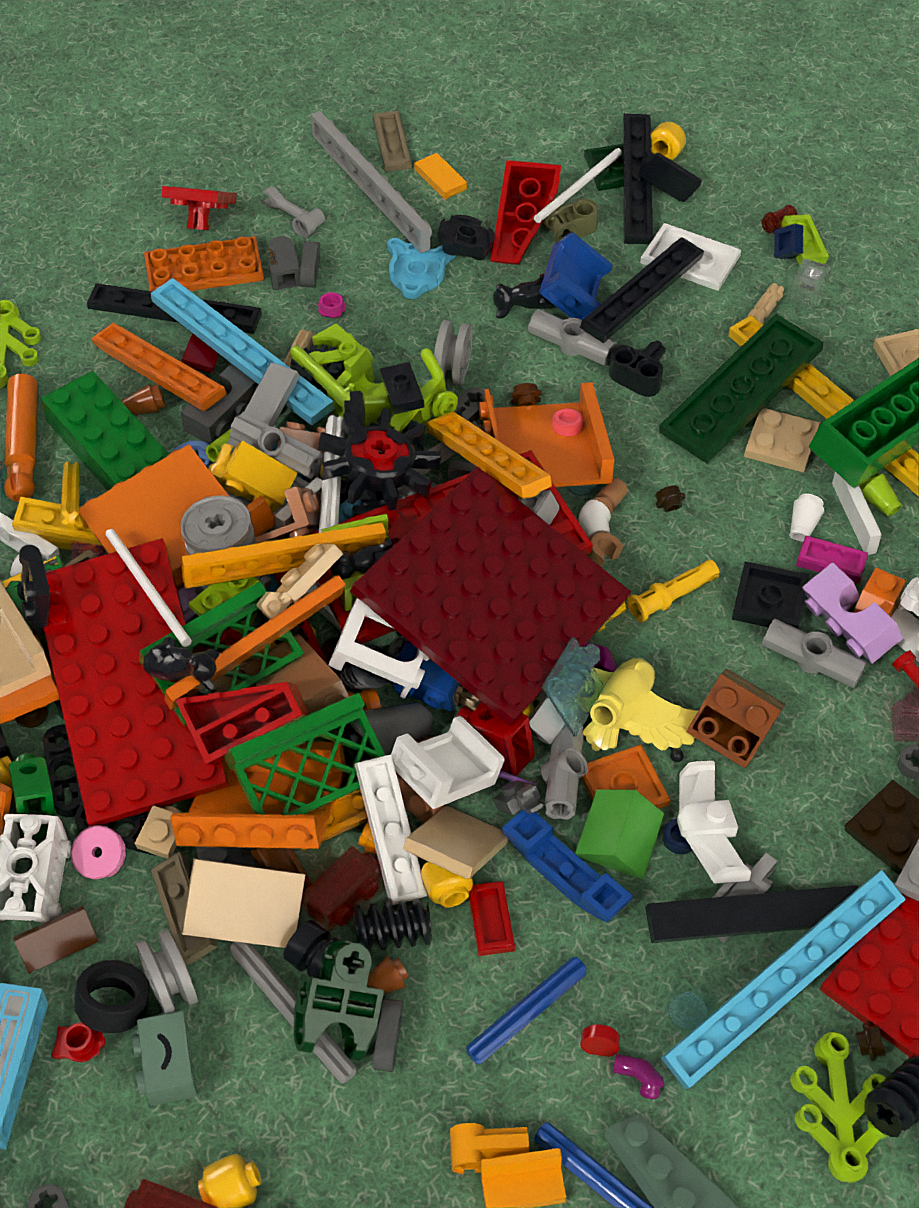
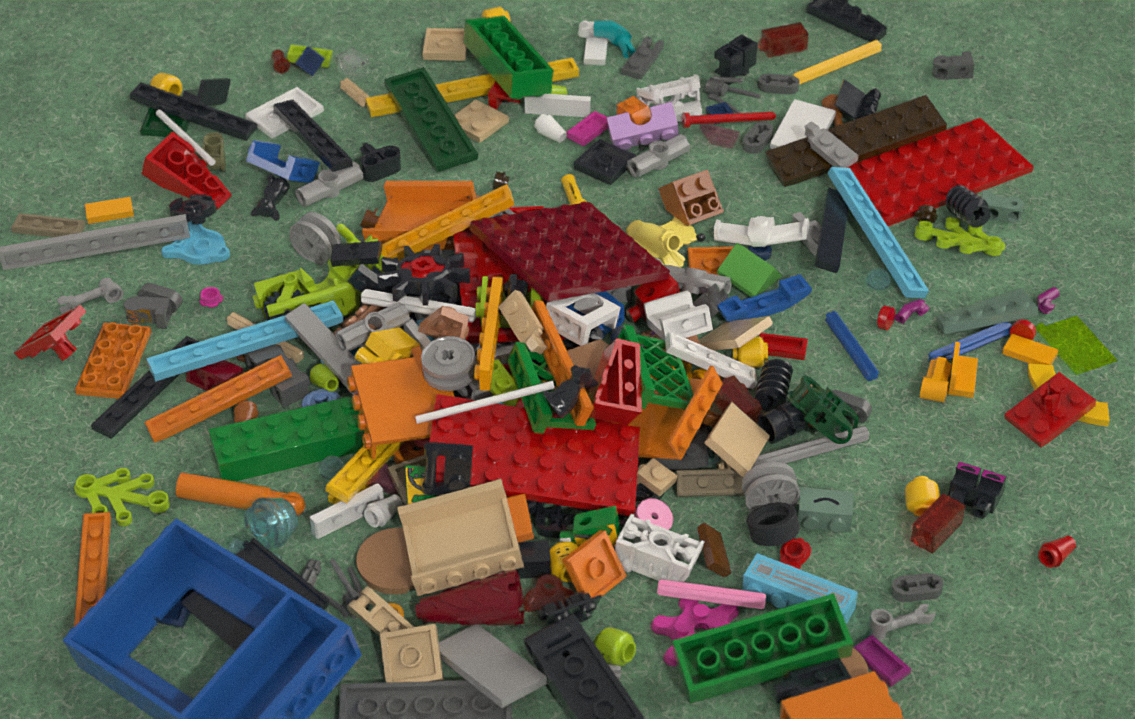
camera: 70 degrees left, 10 degrees down
(70, 493) = (336, 458): yellow axle -> none
(567, 422) = (409, 205): coral tile -> none
(574, 684) = (651, 238): clear light blue hinge -> none

